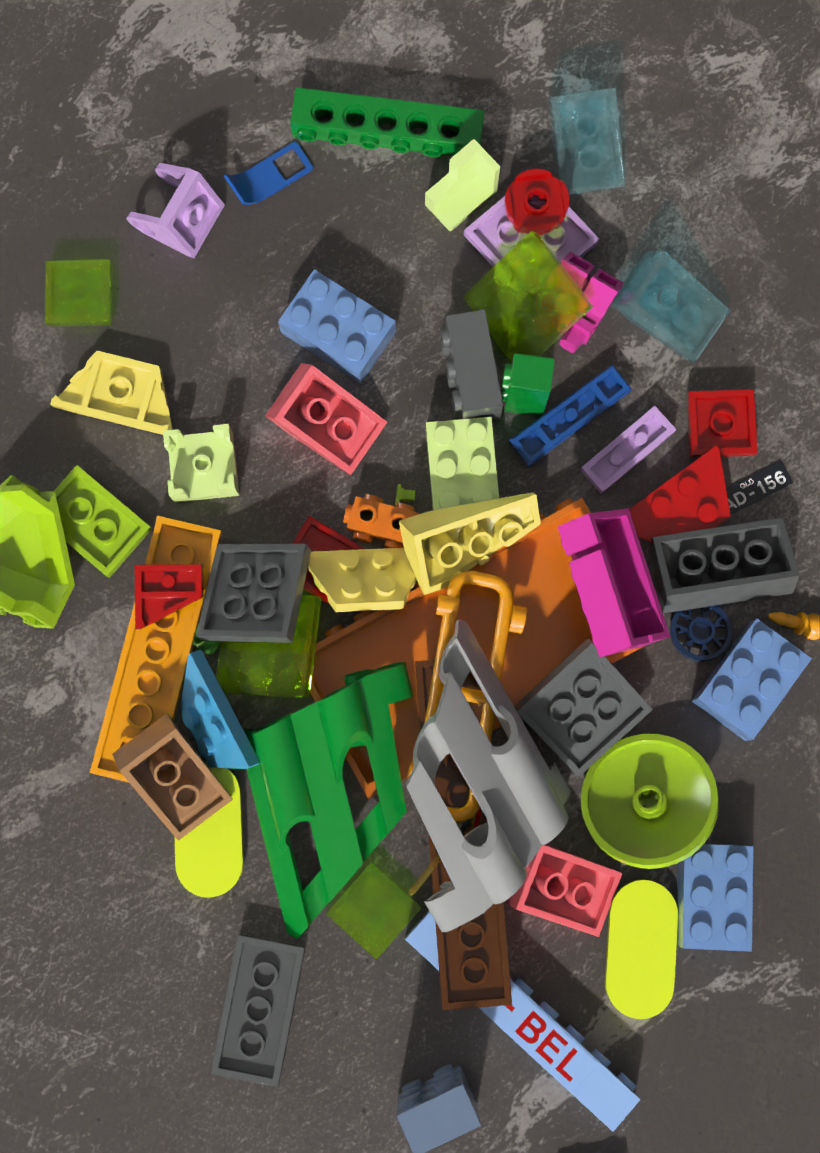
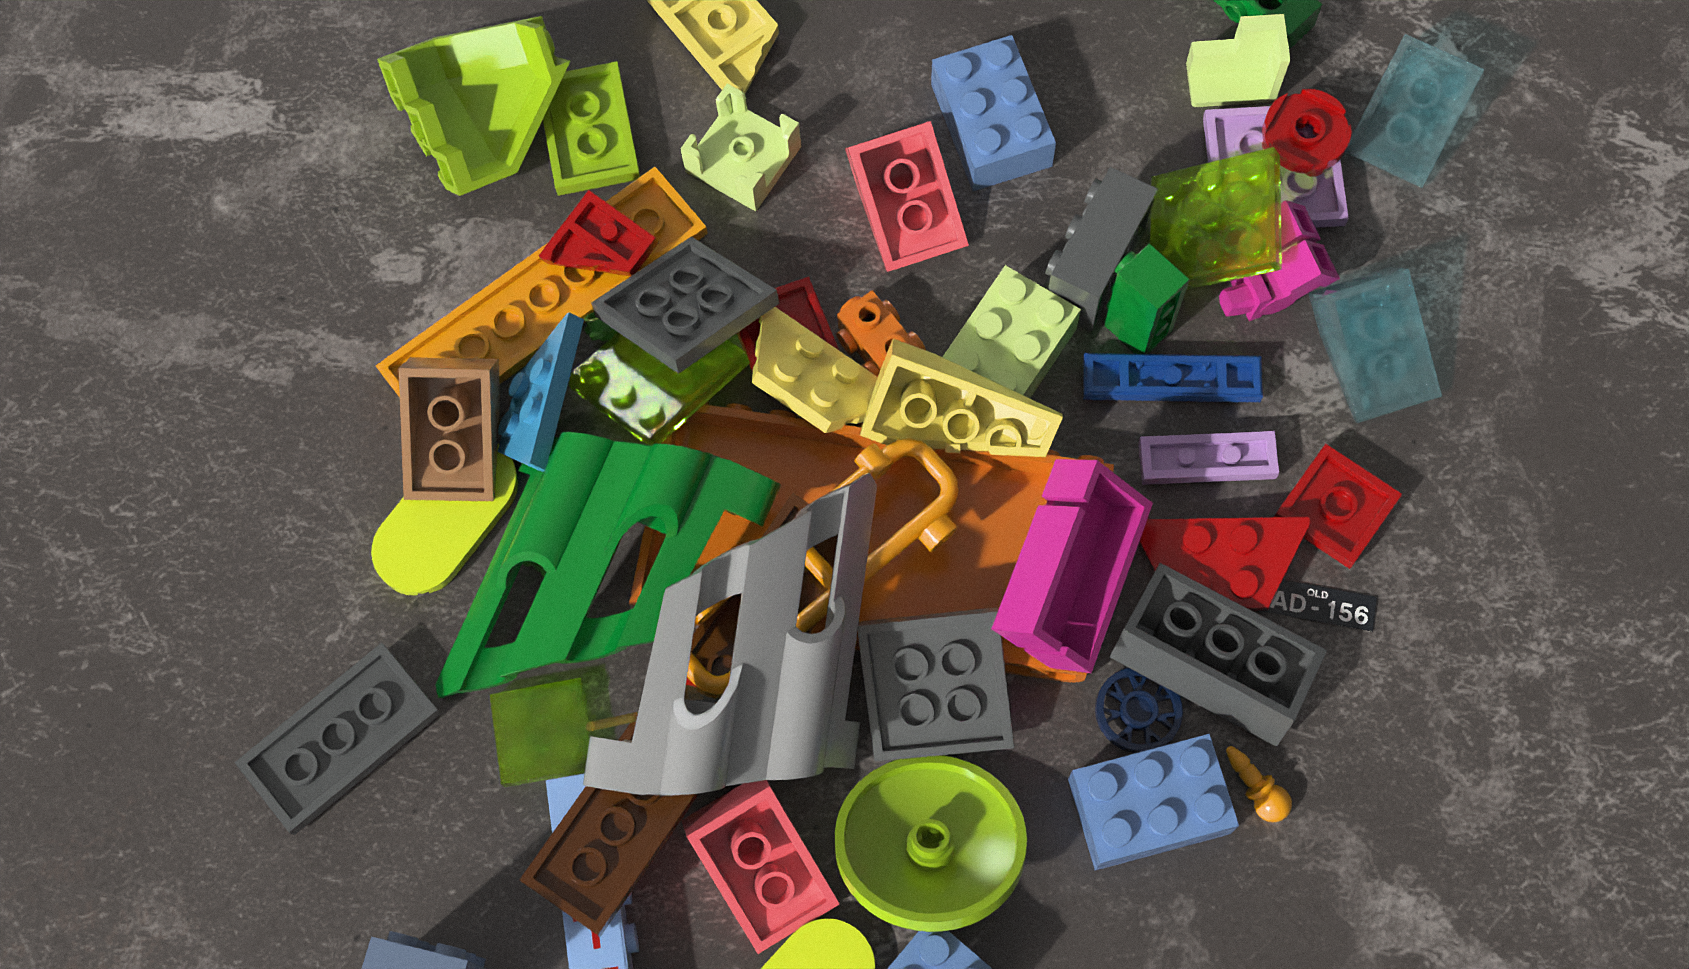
camera: 40 degrees right, 10 degrees down
(404, 495) = (927, 332): lime piece -> none

